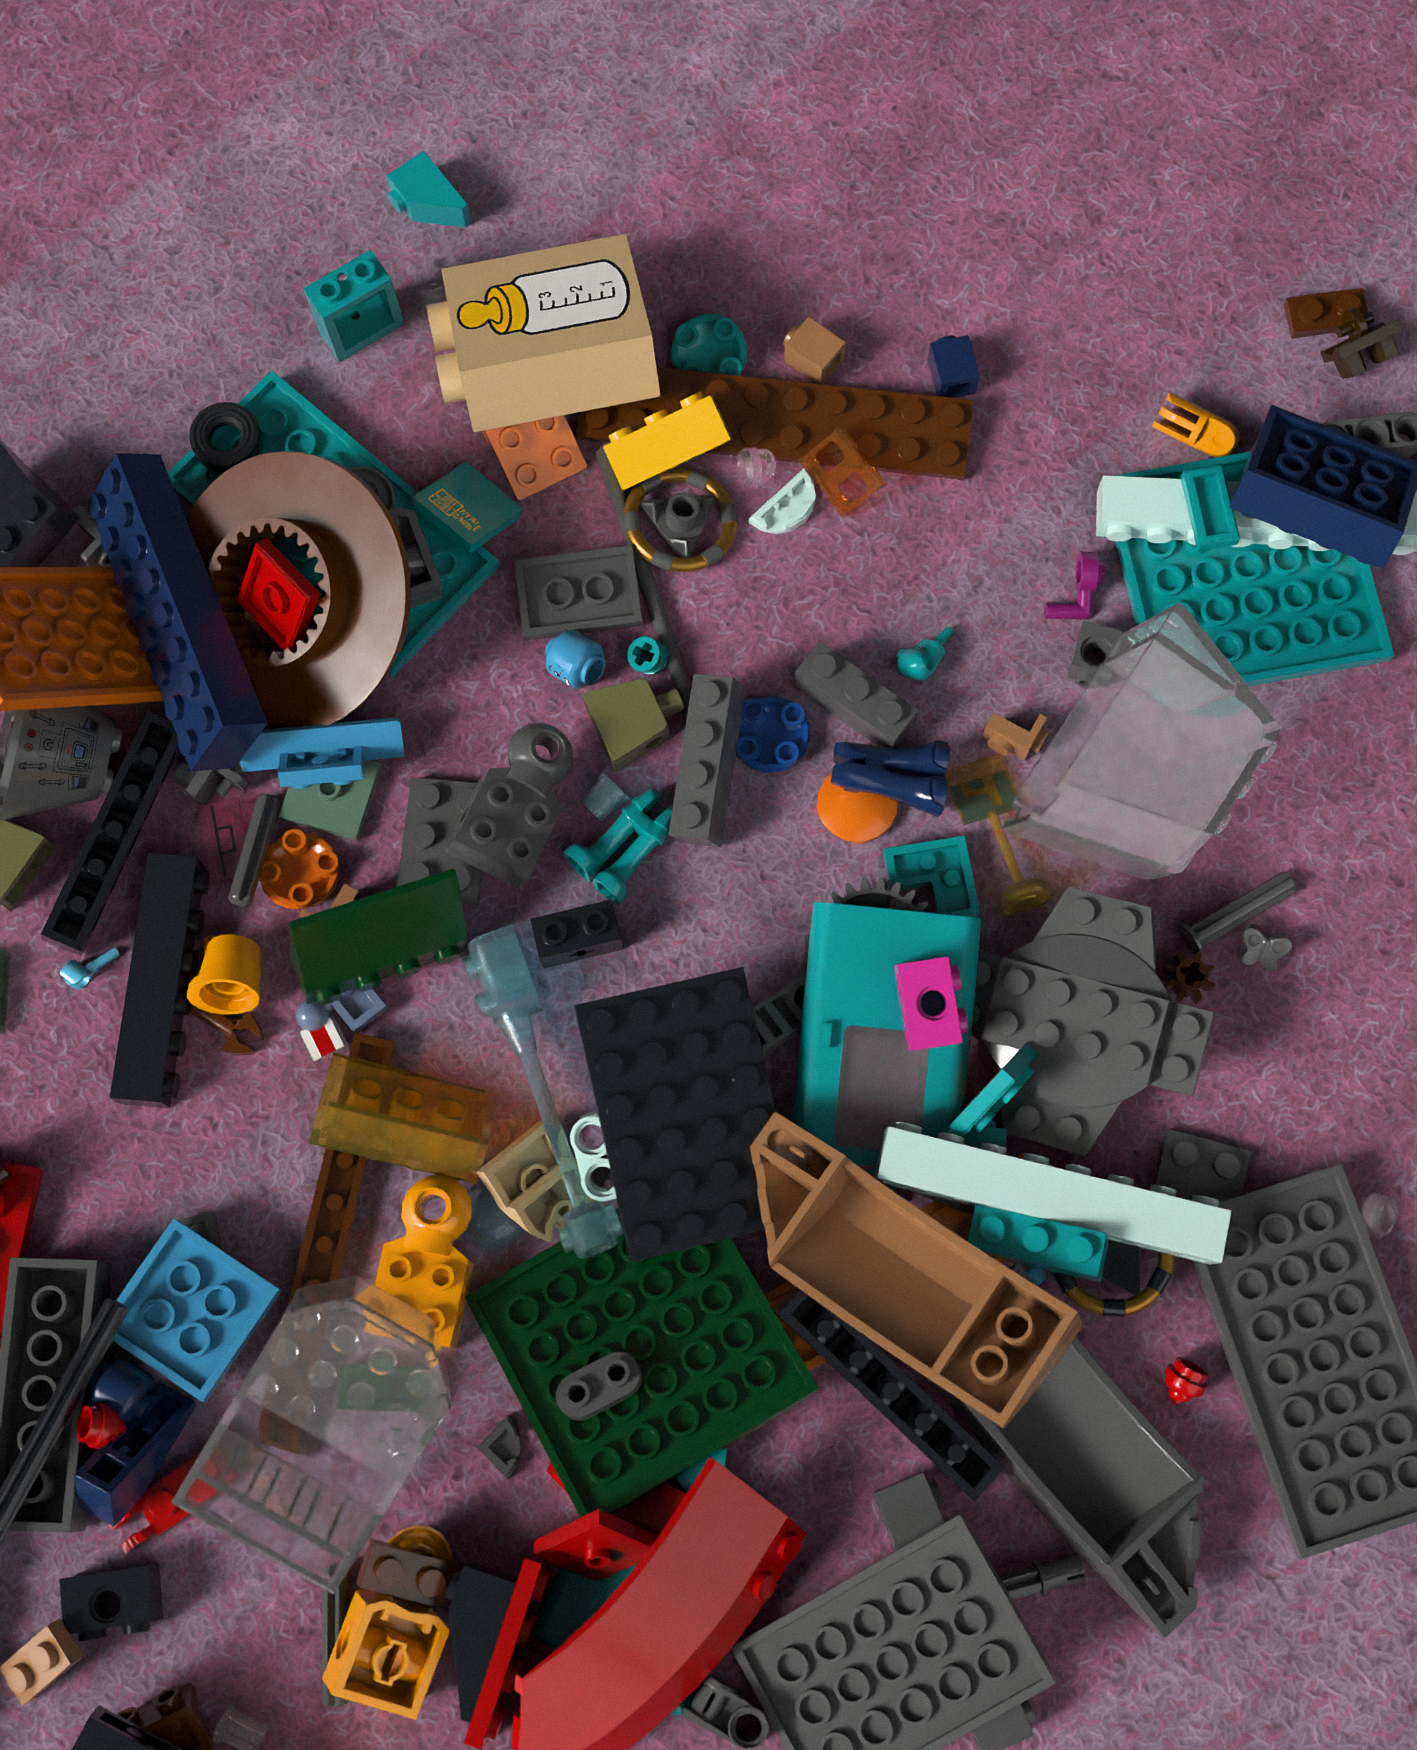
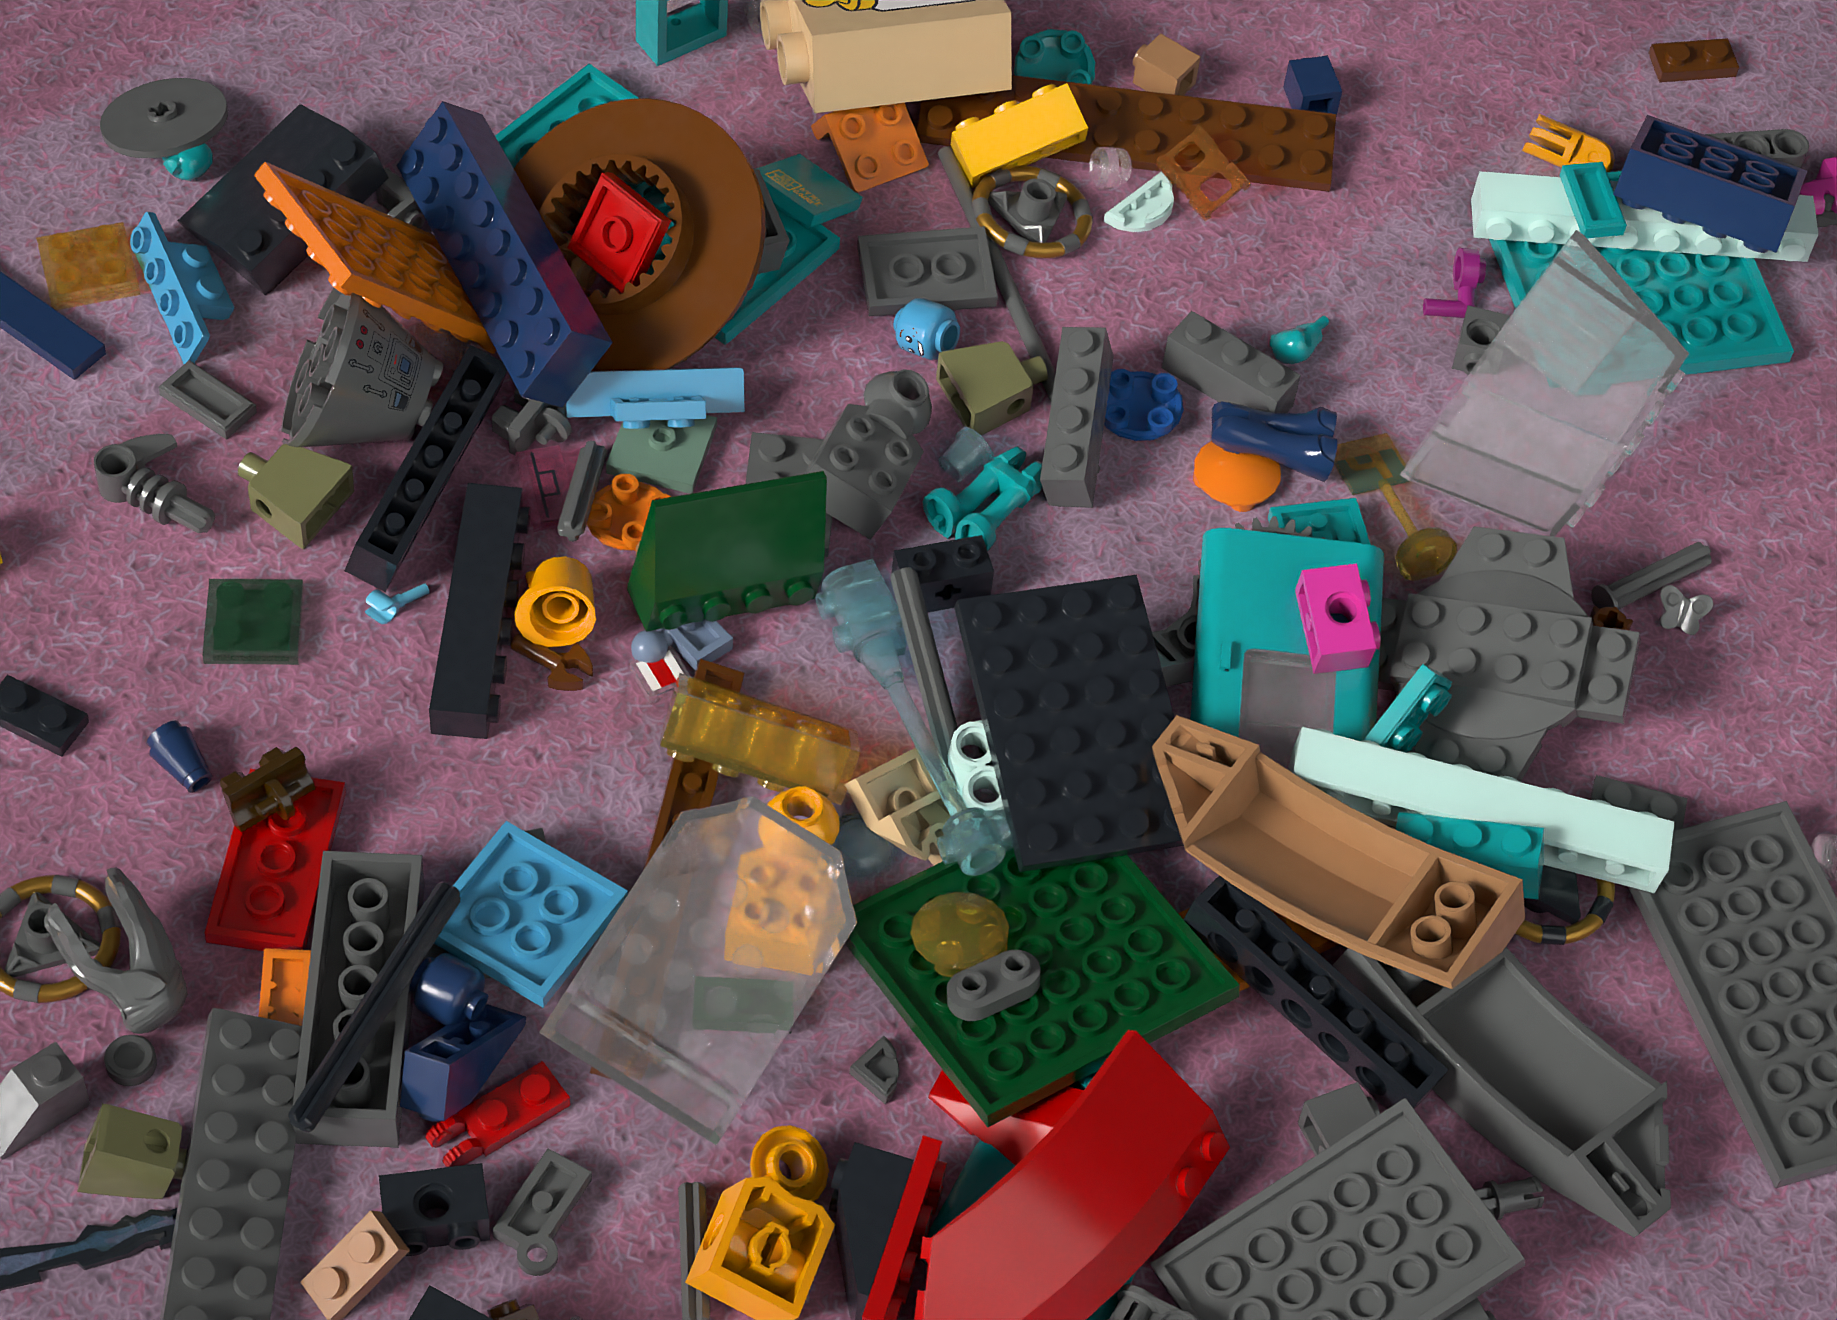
camera: 10 degrees left, 20 degrees down
(99, 1425) = (429, 1010): red plate -> none
(203, 1597) = (541, 1210): none -> dark grey hinge
(220, 415) = (534, 97): black tyre -> none
(406, 1573) = (785, 1160): reddish brown plate -> none
(558, 1040) = (925, 659): none -> dark grey axle
(573, 1325) = (959, 931): none -> clear yellow dish
(595, 1545) = (992, 1134): red plate -> none
(639, 664) = (1001, 319): teal bush -> none
(1008, 737) = (1402, 413): medium nougat bracket -> none
(1185, 1380) = (1636, 1011): red plate -> none
(1377, 338) = (1719, 90): dark brown hips -> none

